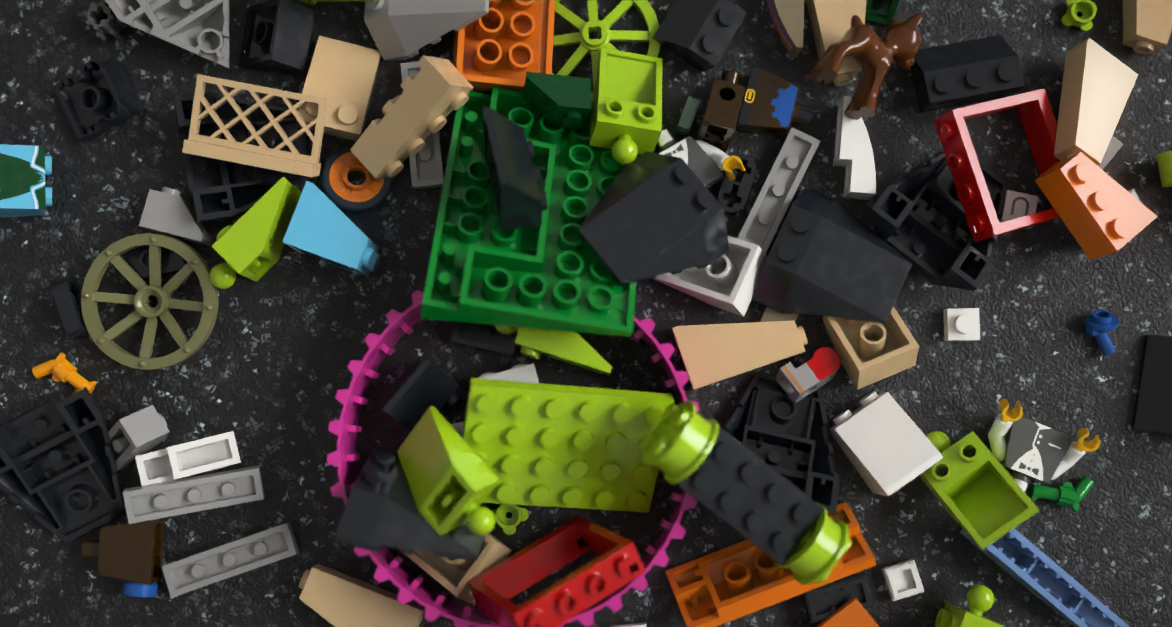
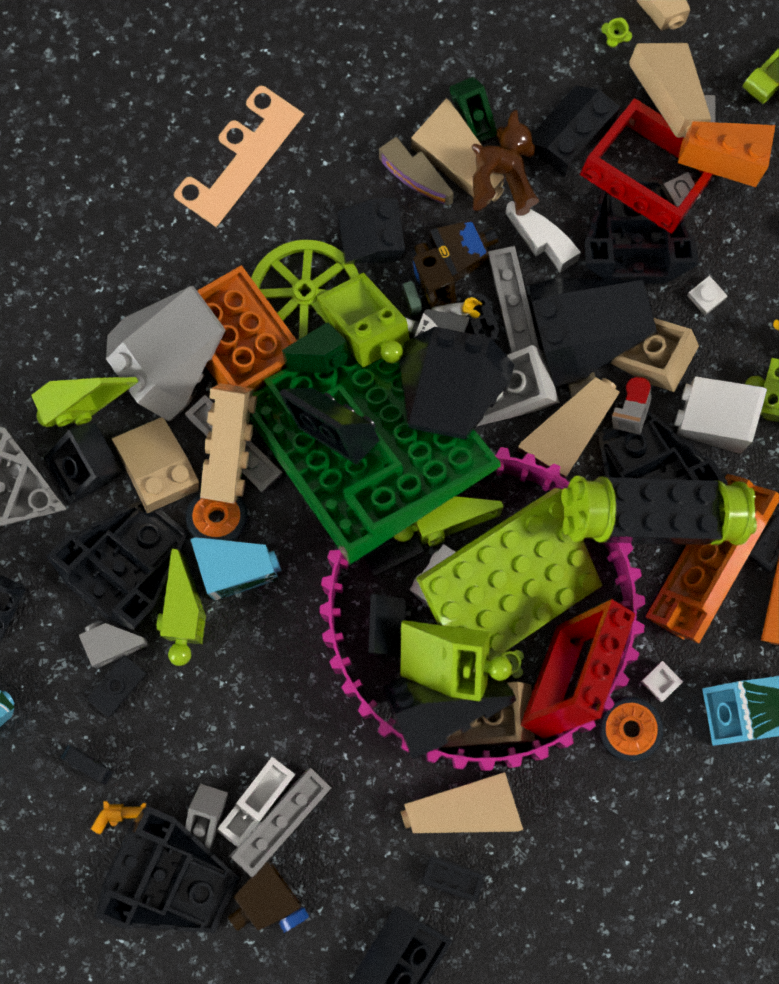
camera: 35 degrees left, 5 degrees down
(144, 299) = (133, 718): olive wheel -> none
(230, 559) = (341, 849): light grey plate -> none
(251, 154) = (128, 555): tan fence -> none

